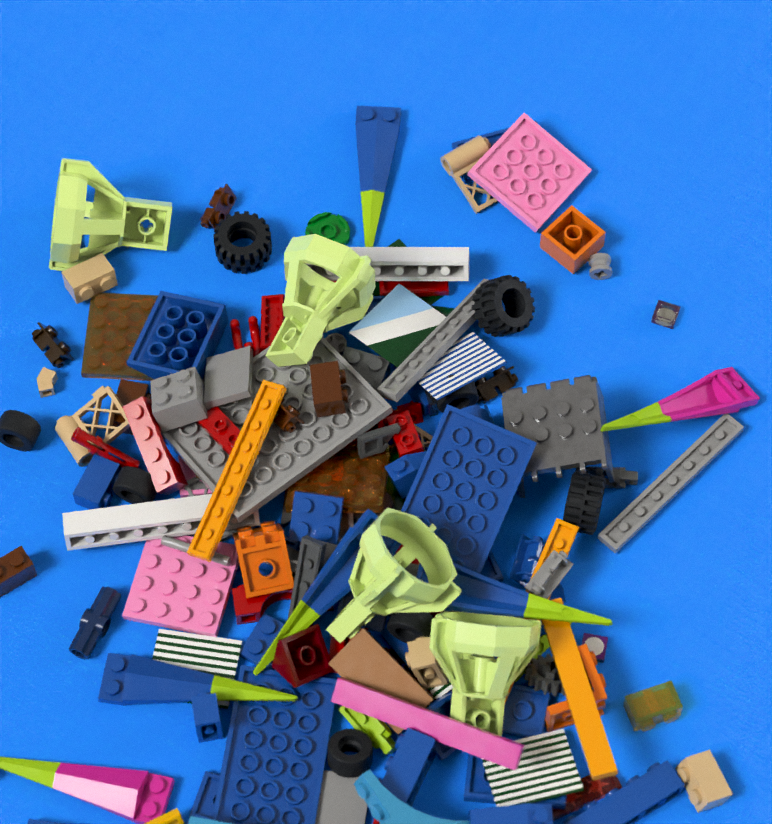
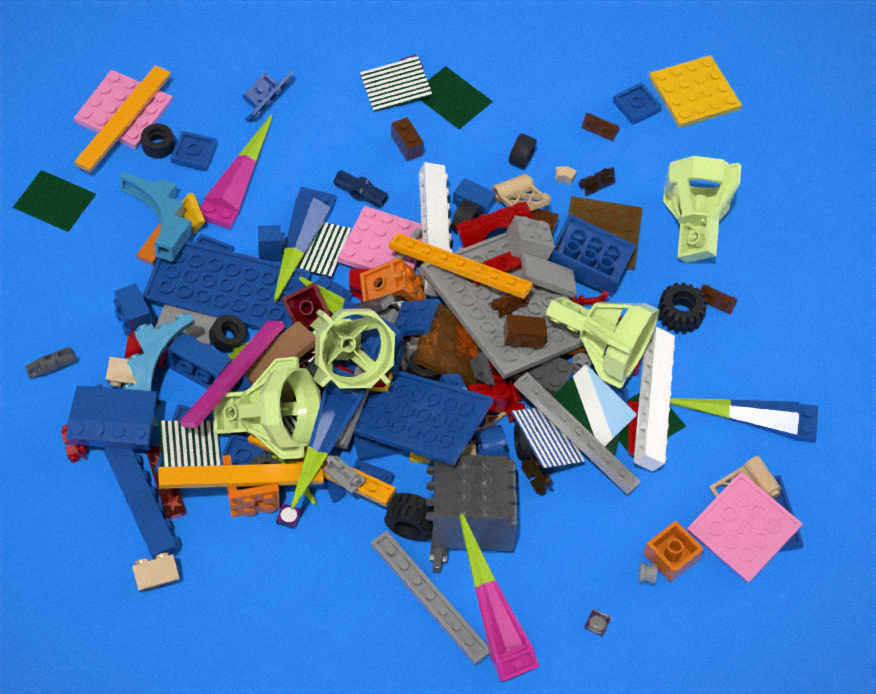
camera: 90 degrees right, 5 degrees down
(81, 437) = (500, 192): red pin -> none
(89, 278) = (653, 204): tan brick -> none
(329, 226) = (692, 374): green tile -> none
(490, 310) = (589, 489): black tyre -> none
(653, 706) = (228, 548): clear yellow brick -> none

